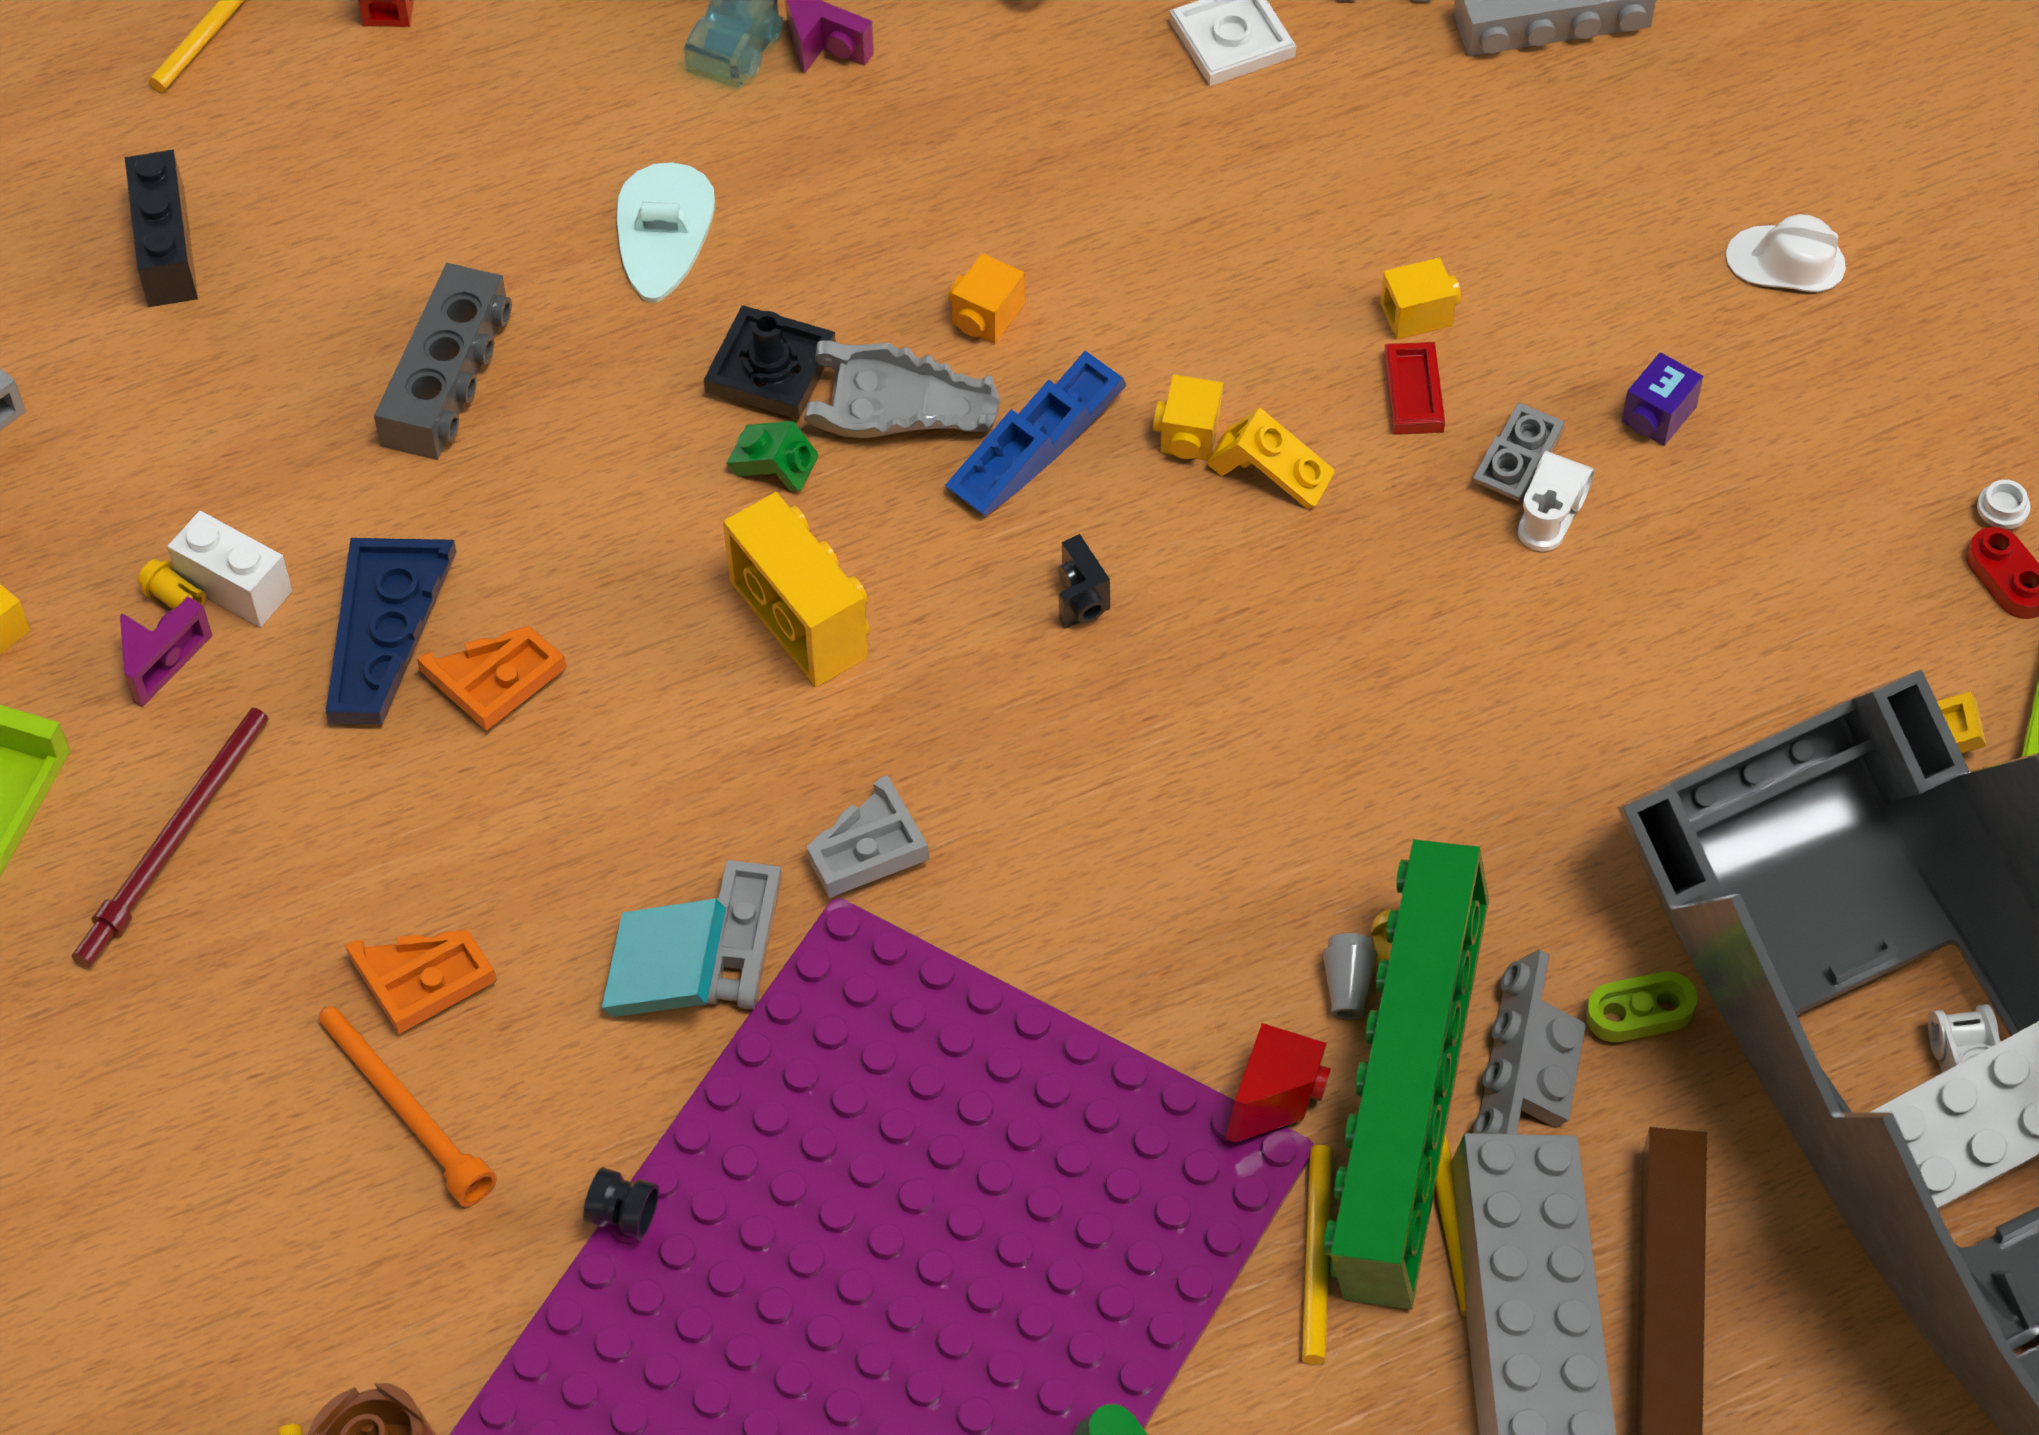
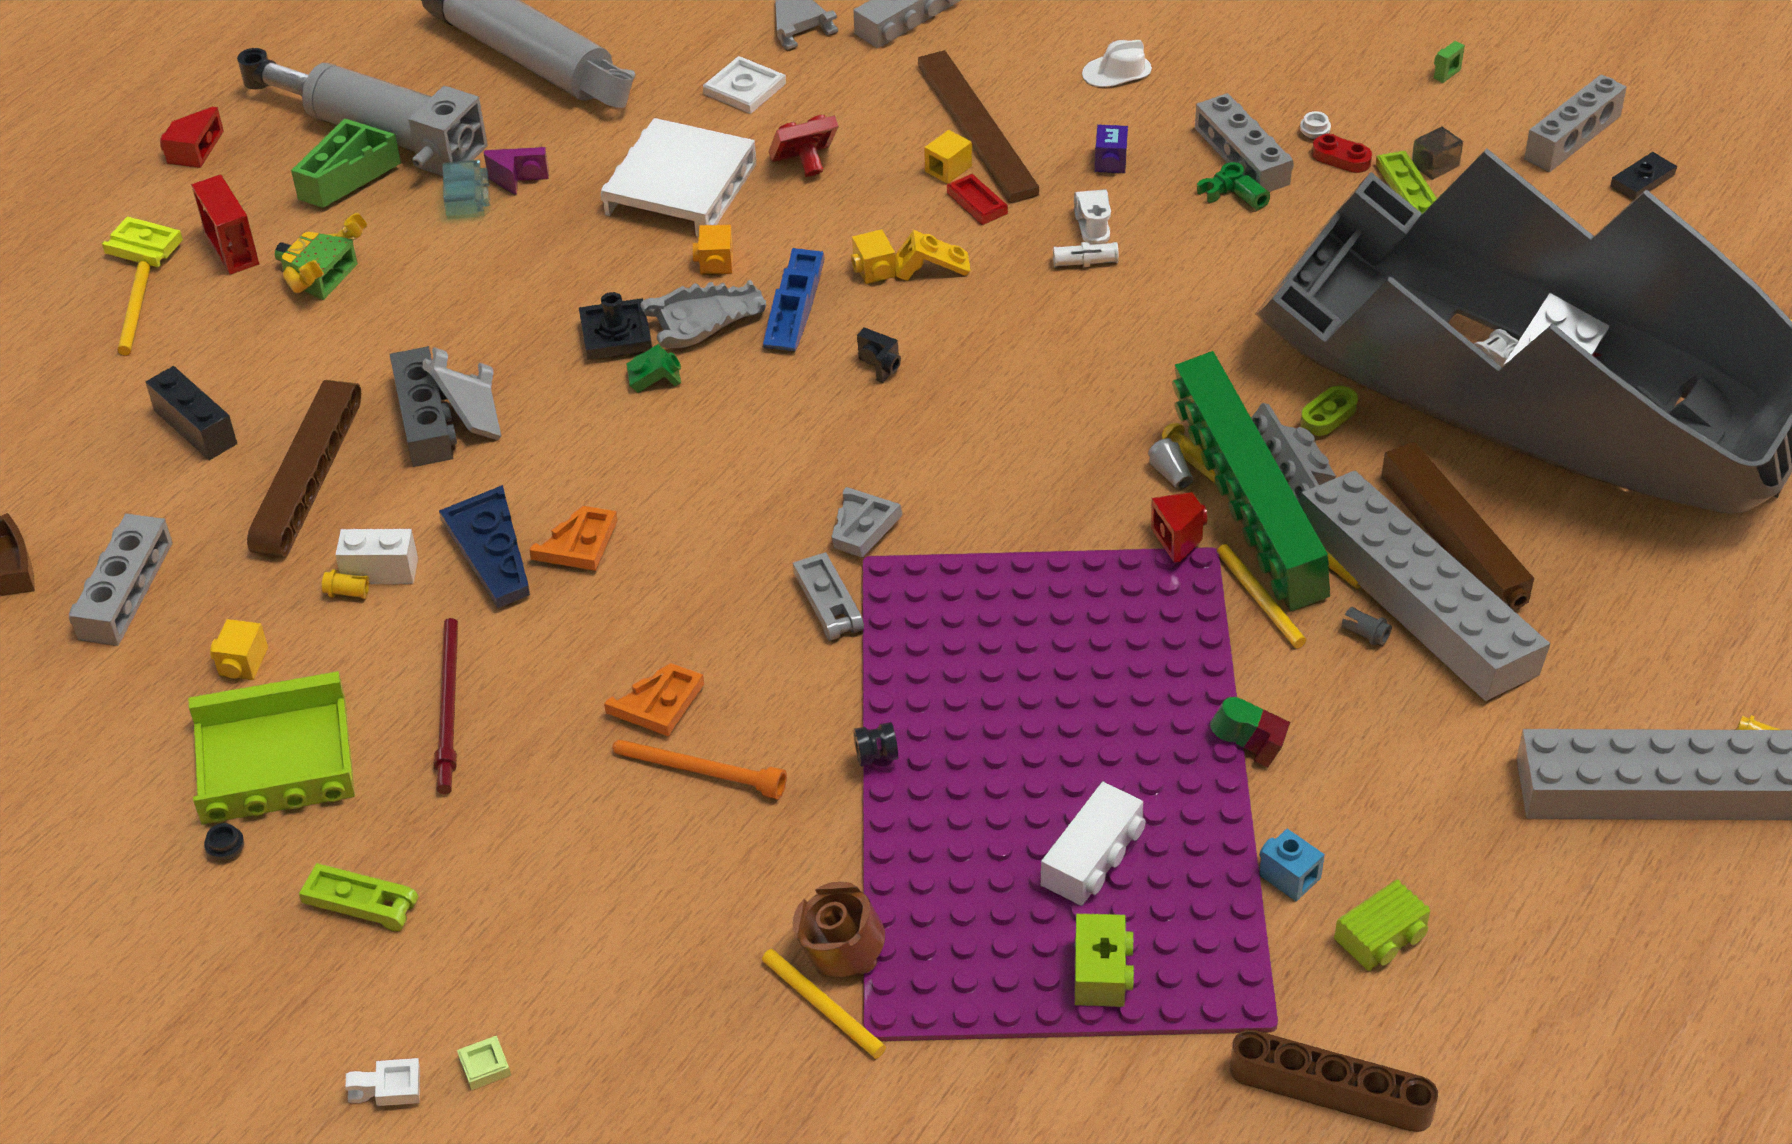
camera: 30 degrees left, 10 degrees down
(158, 655) = (362, 618): magenta slope -> none
(241, 383) = (304, 468): none -> reddish brown beam
(473, 62) = (320, 261): none -> torso
(503, 377) = (468, 394): none -> light grey flag
(663, 226) = (494, 296): light aqua shield -> none
(664, 958) = (798, 622): teal tile -> none
(797, 588) = (727, 418): yellow brick -> none
(1029, 151) = (681, 172): none -> white panel
(1225, 179) = (804, 141): none -> red plate
(1428, 1401) = (1369, 627): none -> dark grey pin
(1460, 549) = (1085, 254): none -> white pin
(1506, 263) = (978, 126): none -> reddish brown tile
(1516, 453) = (1057, 202): light grey slope -> none
(1807, 538) = (1232, 179): none -> green bar
(1865, 486) = (1243, 141): none -> light grey brick

